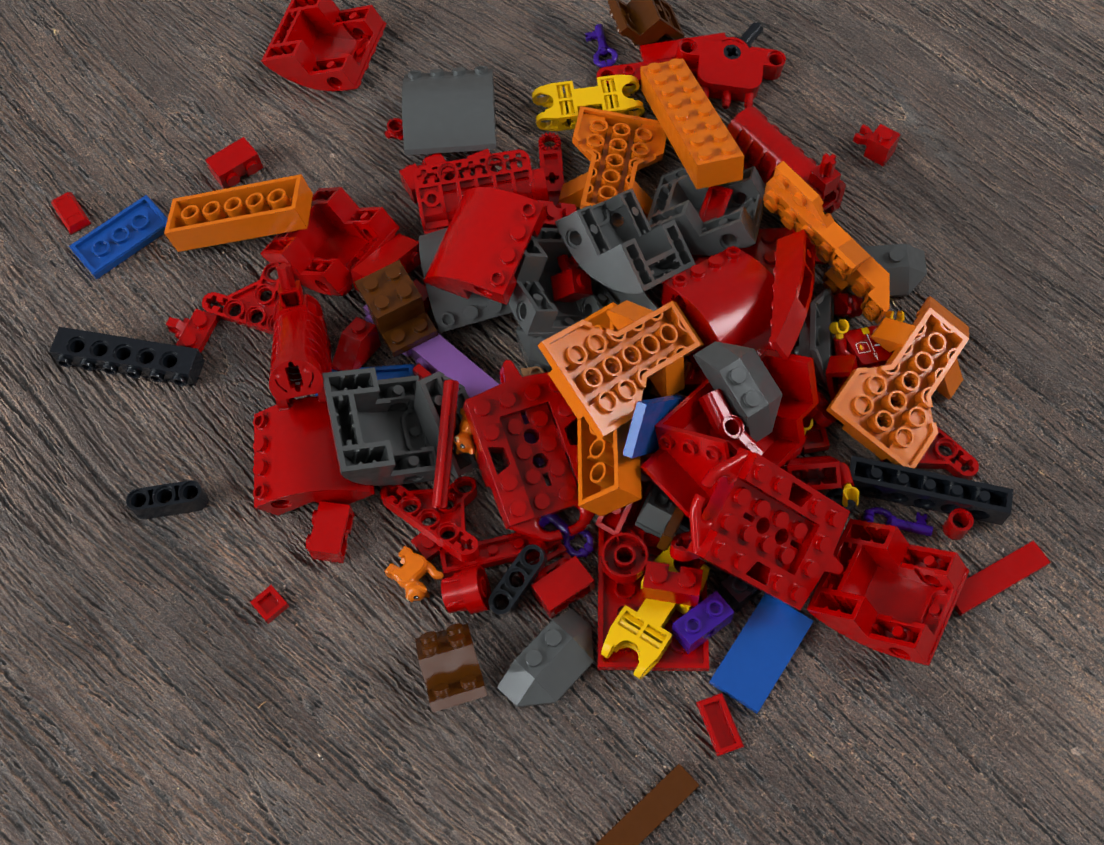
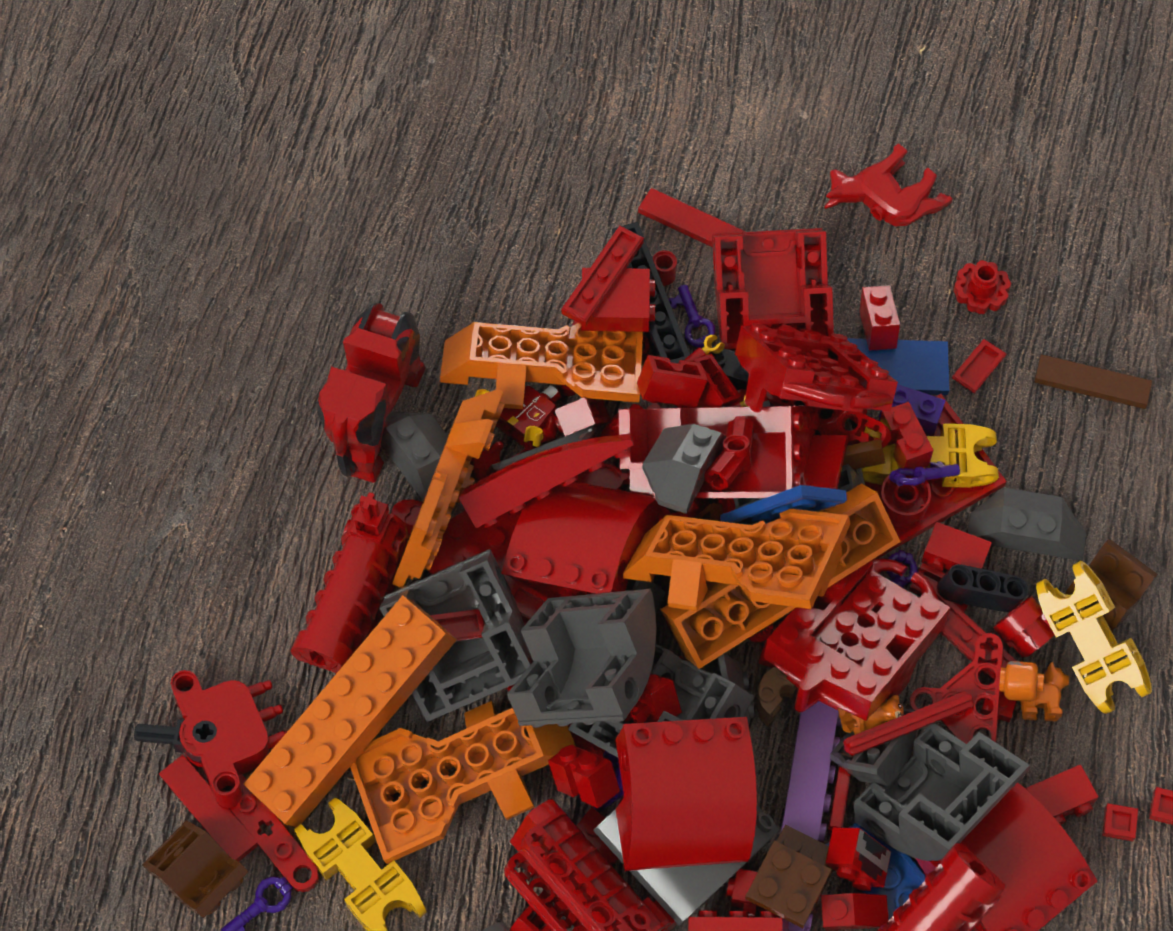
camera: 125 degrees left, 0 degrees up
(284, 562) = (1120, 822): none -> red plate
(384, 352) = (858, 858): none -> red brick
(424, 550) = (1021, 681): none -> orange head
(434, 626) = (1093, 637): none -> yellow piece
(552, 163) = (478, 857): red piece -> none
(625, 597) = (921, 474): none -> dark purple piece
(793, 795) = (982, 287): none -> red plant
(810, 660) = (879, 318): none -> red brick
(823, 430) = (671, 382): none -> red brick
(879, 144) = (247, 524): red brick -> none
(934, 444) = (626, 304): none -> red brick
(945, 756) = (882, 193): none -> red animal
(959, 435) = (602, 276): none -> red tile
(963, 247) = (357, 400): none -> red animal

